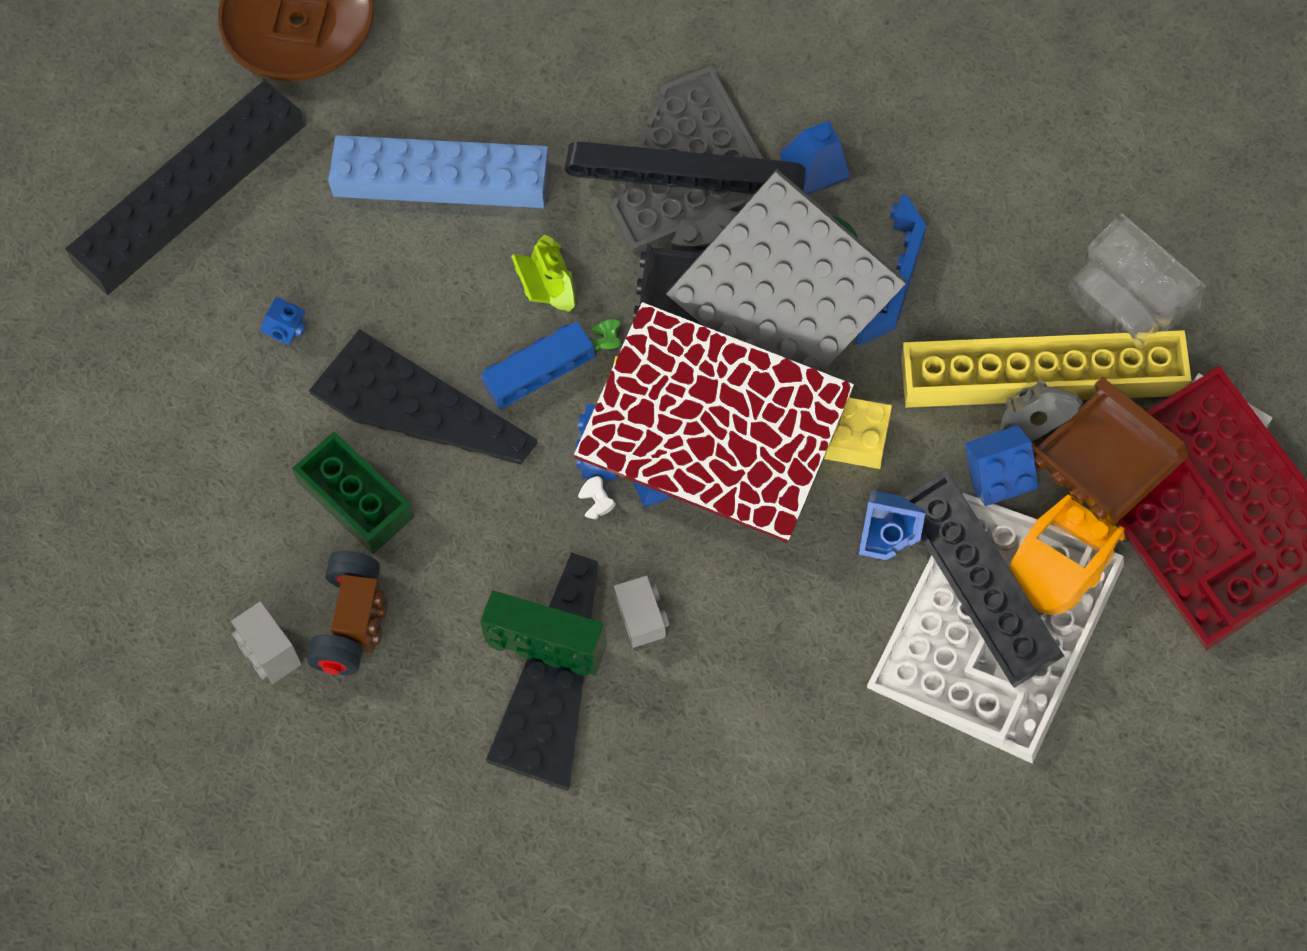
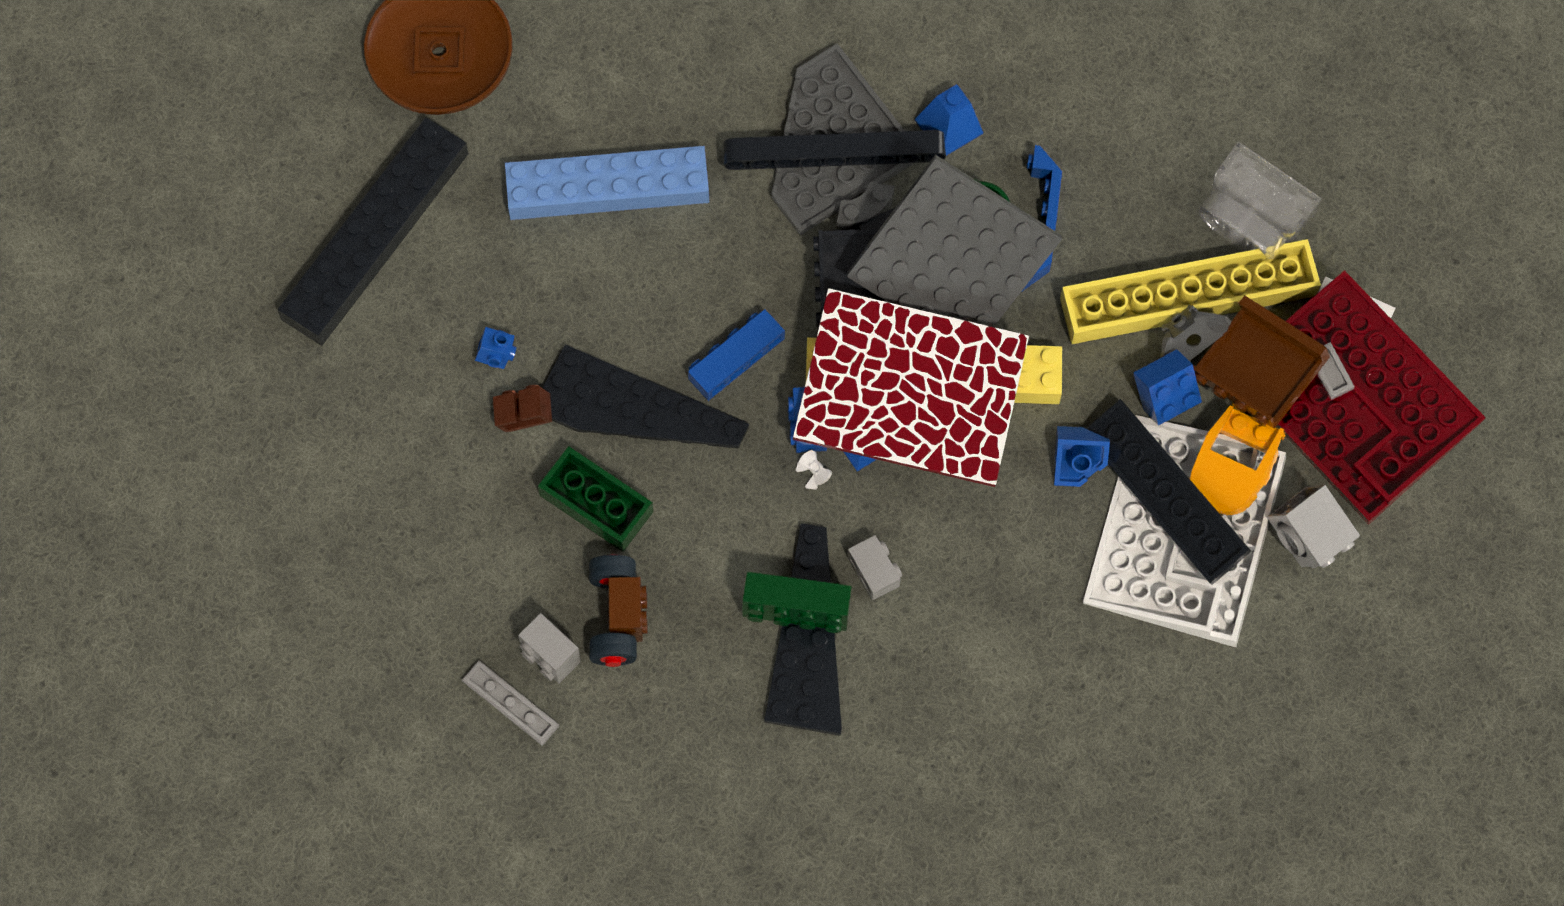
camera: 15 degrees left, 5 degrees up
(215, 697) = (510, 703): none -> light grey tile
(297, 387) = (522, 409): none -> copper piece
(534, 274) = (723, 251): lime piece -> none
(609, 329) = (793, 311): bright green piece -> none
(1141, 641) = (1313, 527): none -> light grey brick
(1190, 478) = (1334, 375): none -> light grey tile

